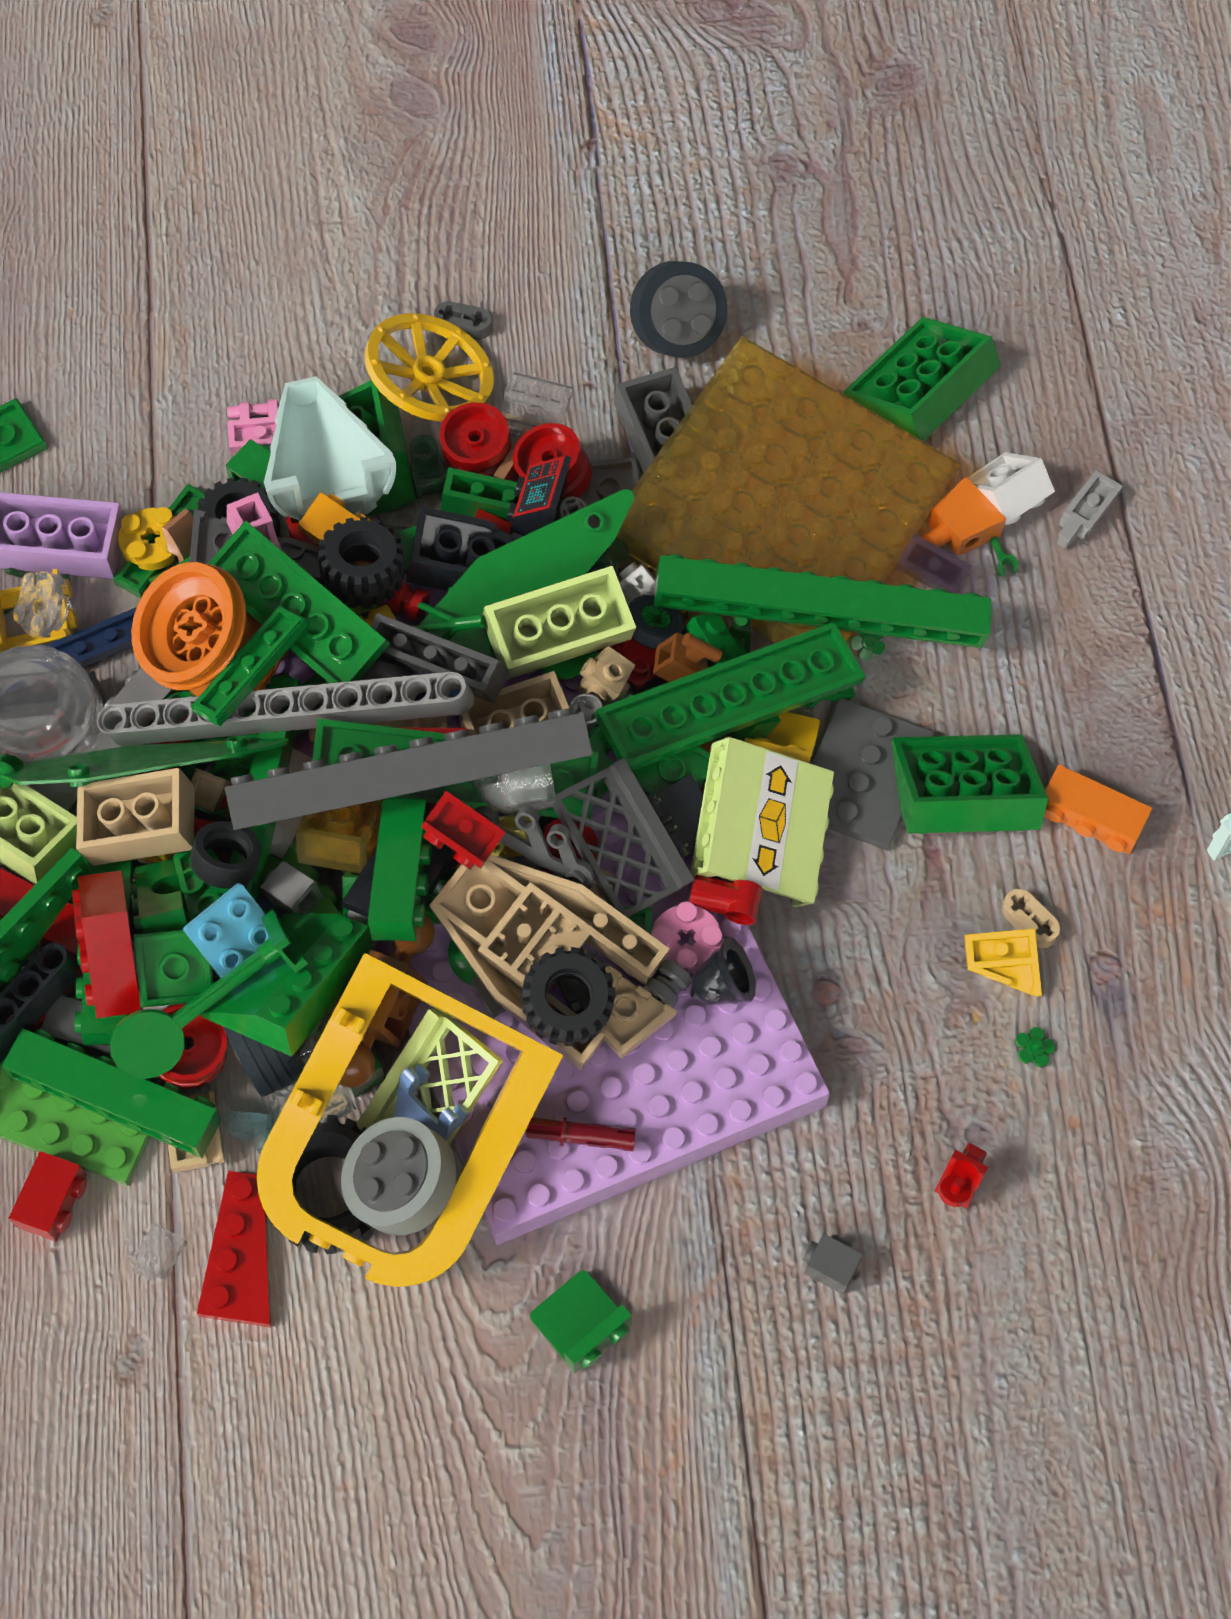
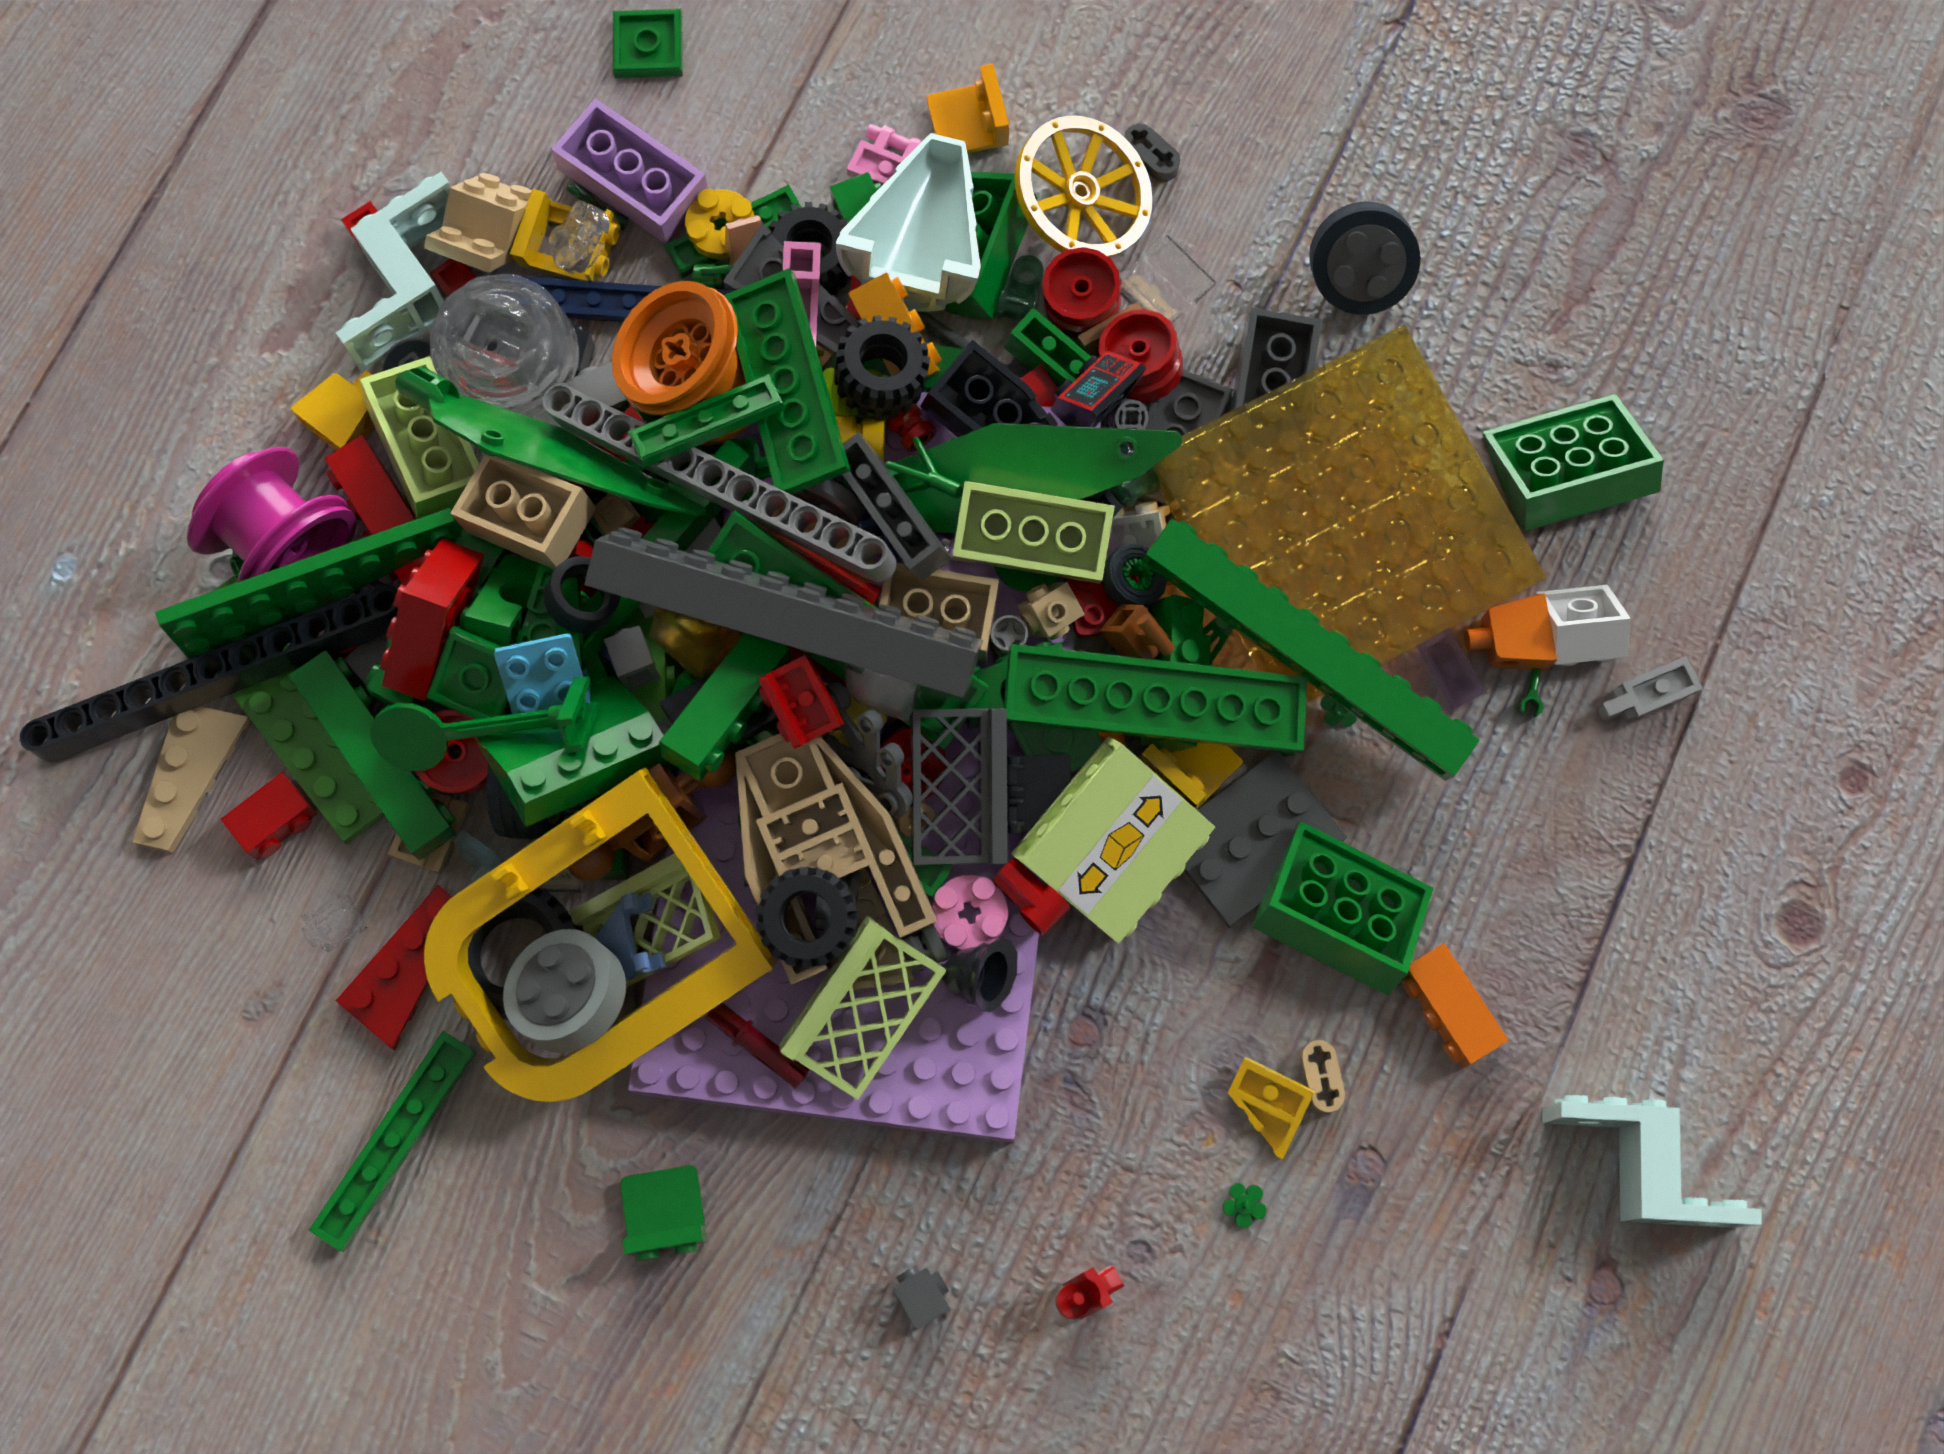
camera: 30 degrees right, 10 degrees up
(306, 355) = (972, 113): none -> light orange bracket
(316, 1399) = (392, 1142): none -> green plate
(618, 1054) = (832, 991): none -> yellowish green fence

